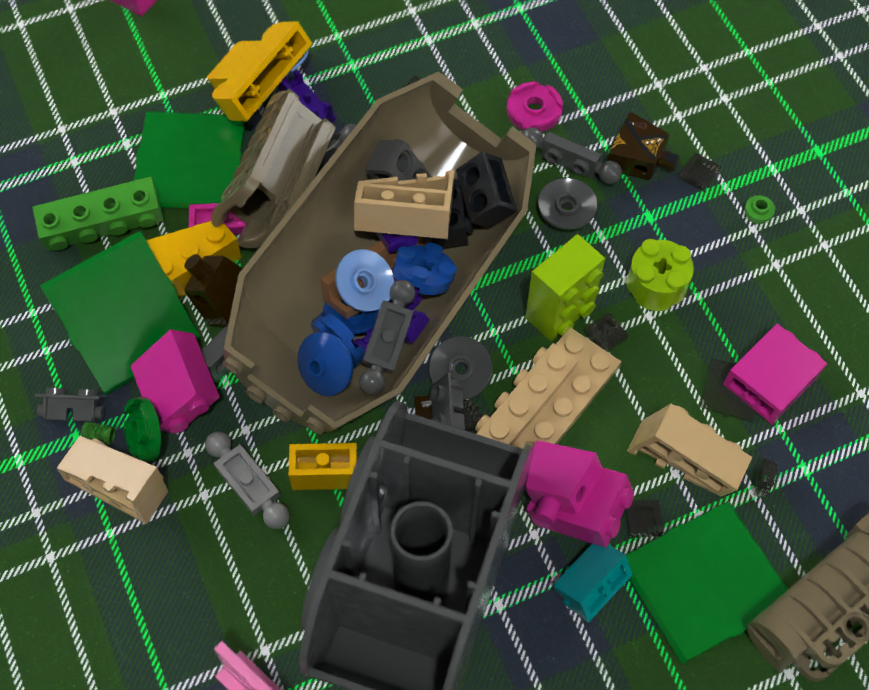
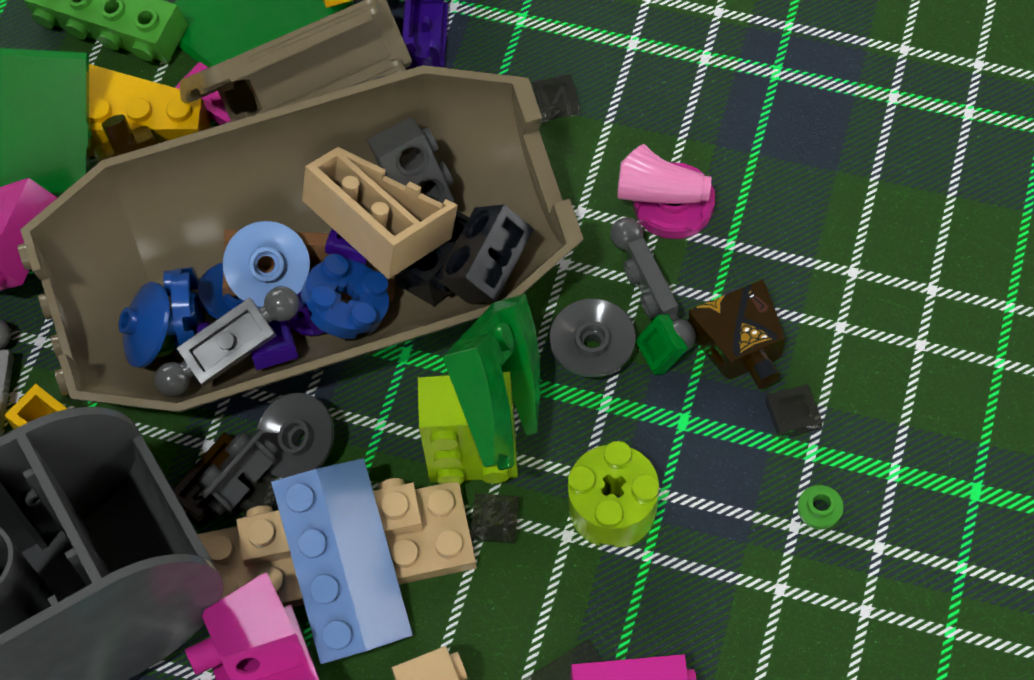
camera: 45 degrees right, 0 degrees up
(522, 99) = (654, 180): none -> bright pink piece
(557, 406) = (341, 560): none -> medium blue slope
(575, 233) = (497, 343): none -> green wedge
(606, 182) = (661, 344): none -> green tile

